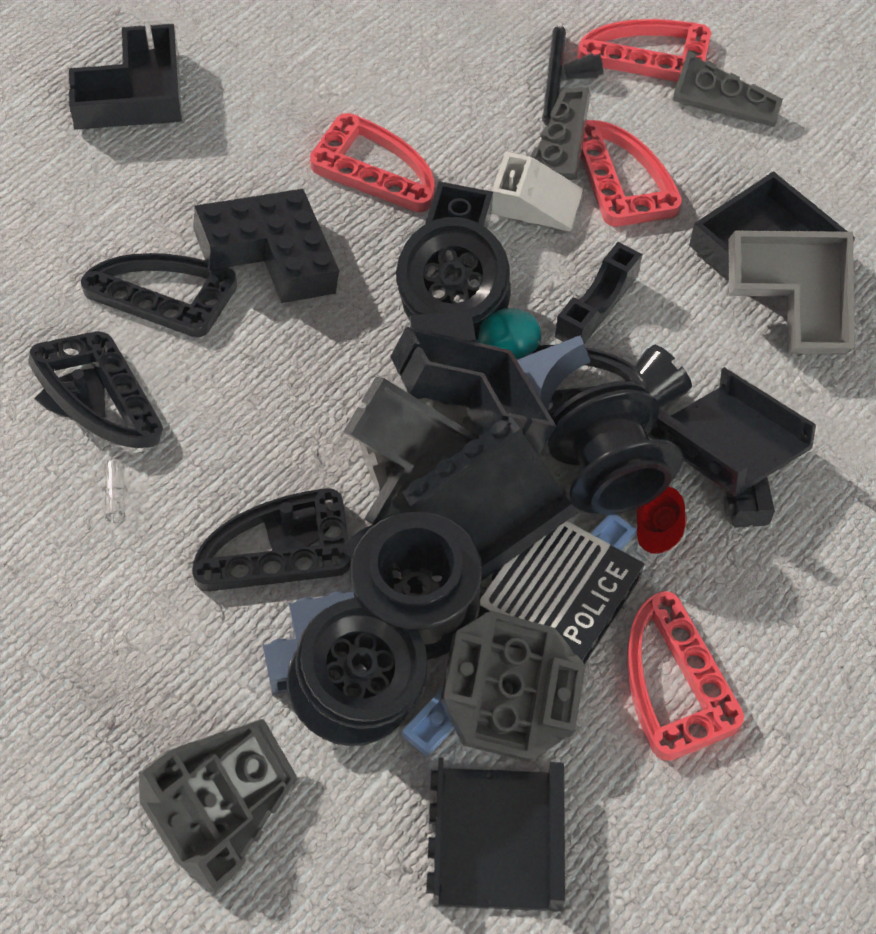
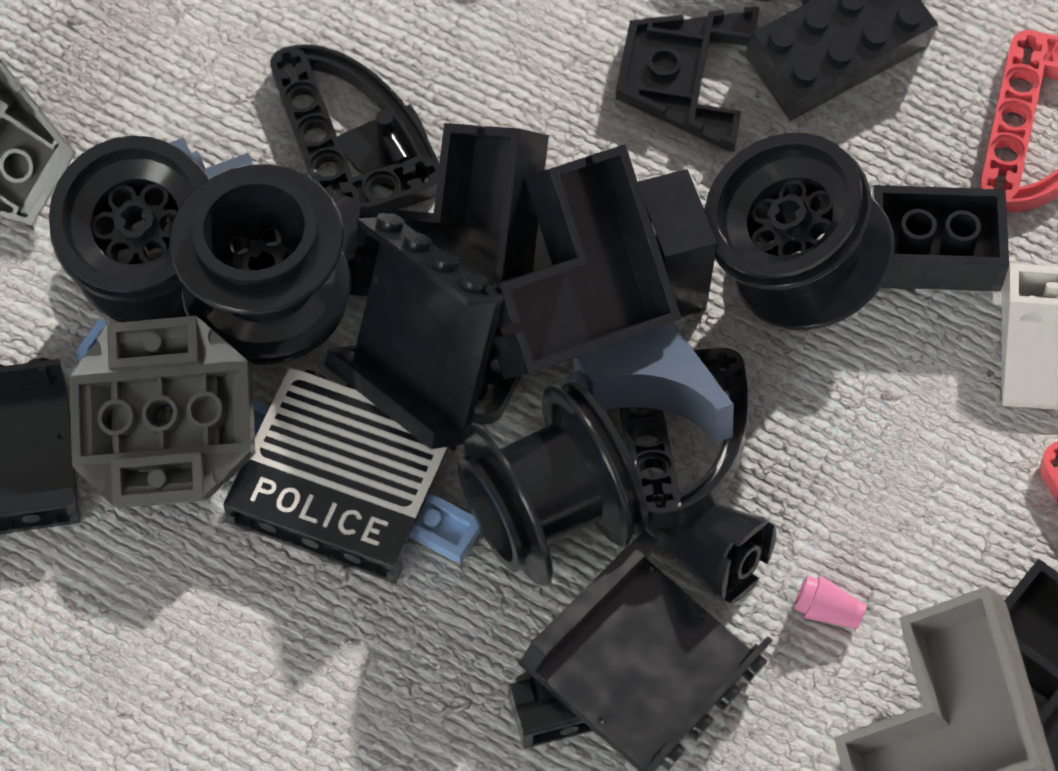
camera: 80 degrees right, 5 degrees up
(282, 346) = (666, 68): none -> black wing
(511, 330) = (744, 335): teal piece -> none
(614, 278) = (910, 469): black arch -> none
(661, 522) = (474, 587): red piece -> none
(693, 342) = (828, 603): none -> bright pink cone
(696, 678) = (242, 668): coral beam -> none

